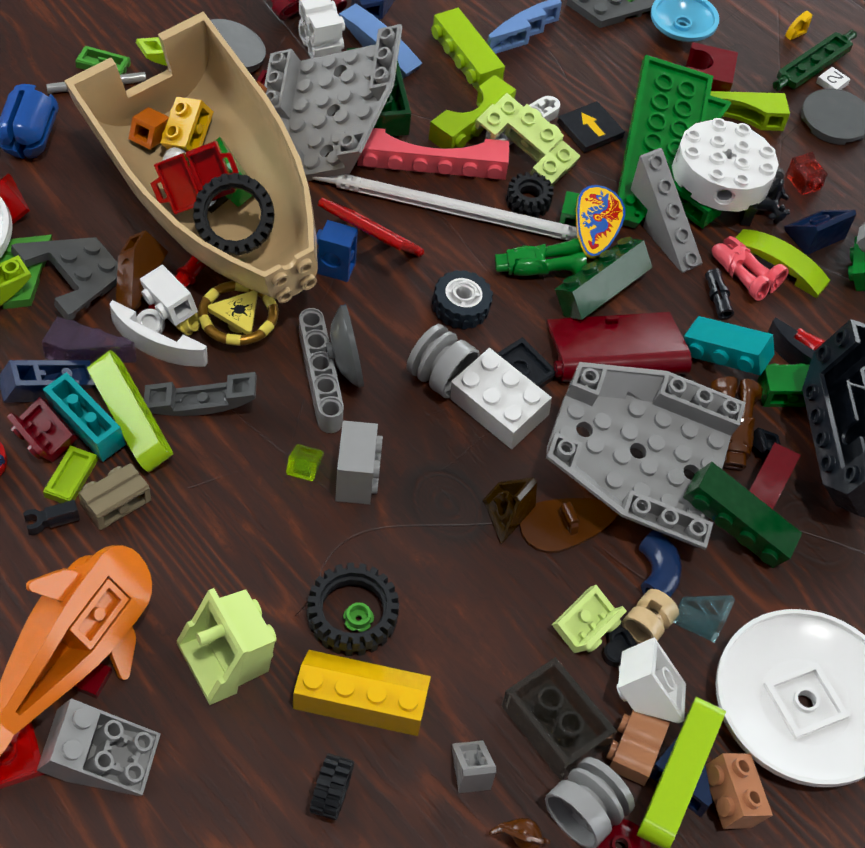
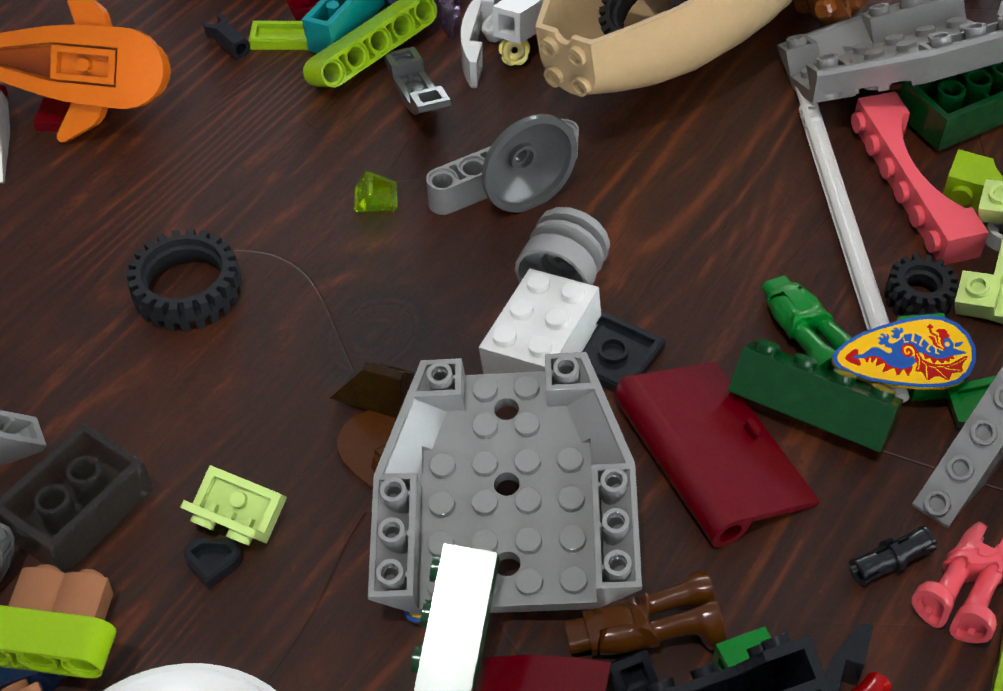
camera: 80 degrees right, 5 degrees down
(114, 496) = (262, 64): dark tan brick -> none
(226, 644) = (97, 182): yellowish green piece -> none
(237, 312) = (531, 84): light yellow piece -> none
(336, 250) = (678, 123): blue brick -> none
(358, 462) = (372, 219): light grey brick -> none
(358, 610) = (177, 286): bright green plate -> none
(361, 692) = (80, 315): yellow slope -> none
(371, 227) = (704, 125): red bar -> none
(462, 299) = (688, 262): black wheel -> none
(651, 616) = (254, 572): tan wheel -> none
(651, 682) = (146, 590): white slope -> none
(664, 562) = (330, 578): dark blue cylinder -> none
(704, 614) = (283, 647): clear light blue slope -> none
(730, 345) = (774, 572): teal brick -> none

